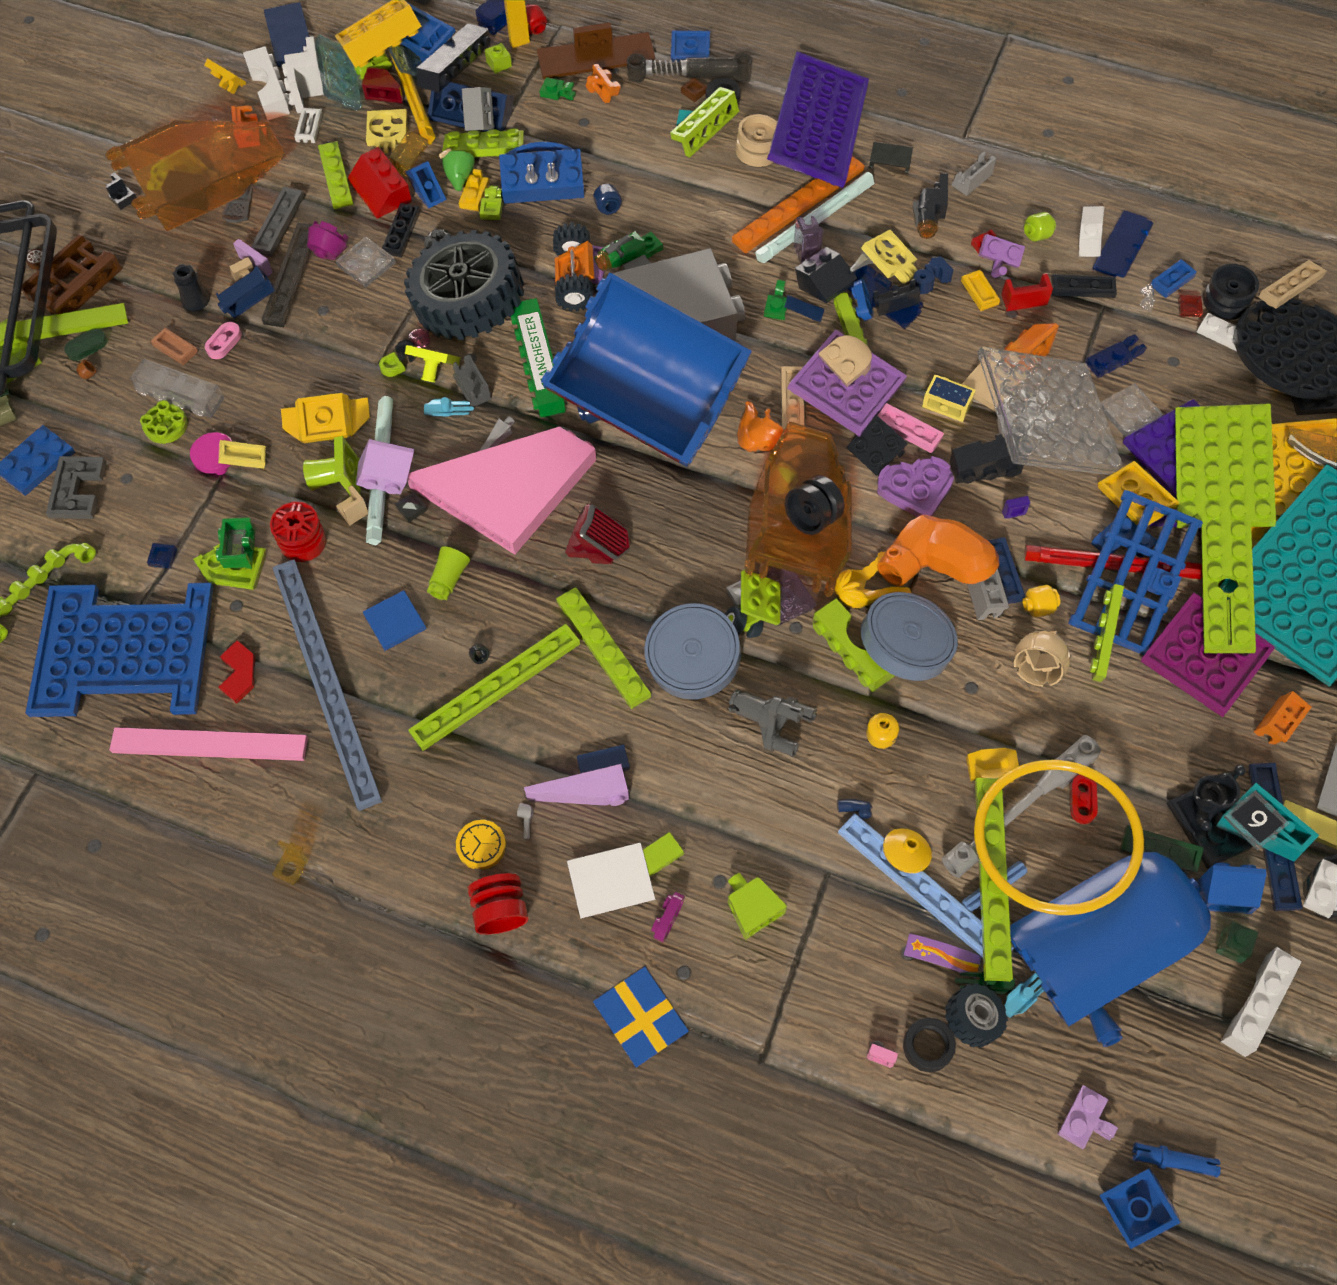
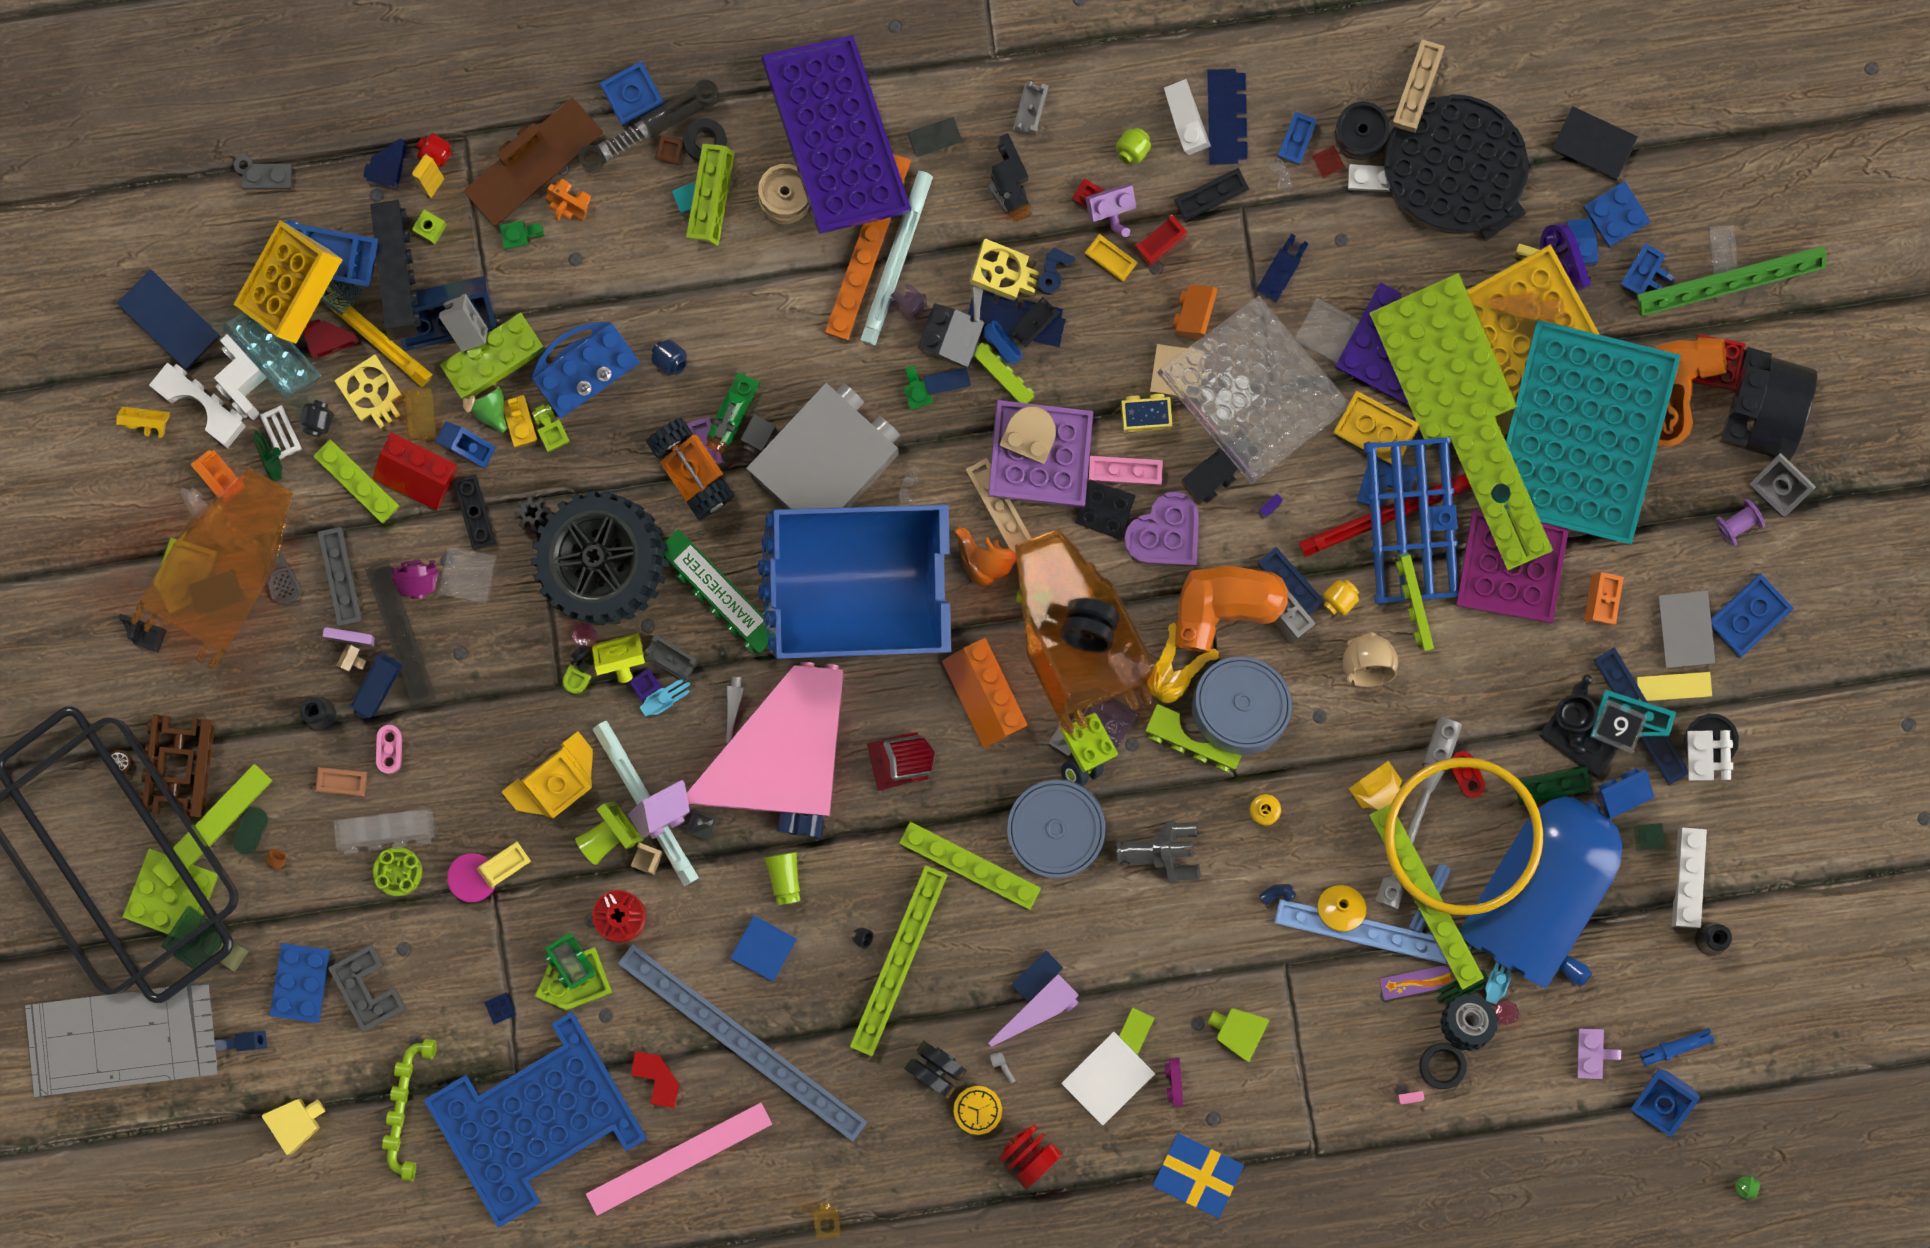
camera: 30 degrees left, 20 degrees up
(287, 133) = (268, 457): none -> dark green piece
(336, 123) = (316, 418): none -> black head
(438, 390) = (644, 684): none -> dark purple tile
(467, 782) = (937, 1066): none -> black wheel
(495, 545) = (800, 824): none -> dark blue leg
(698, 525) = (984, 693): none -> orange slope
(1017, 1030) = (1506, 1012): none -> clear pink tile
(1263, 1072) = (1705, 942): none -> black plant

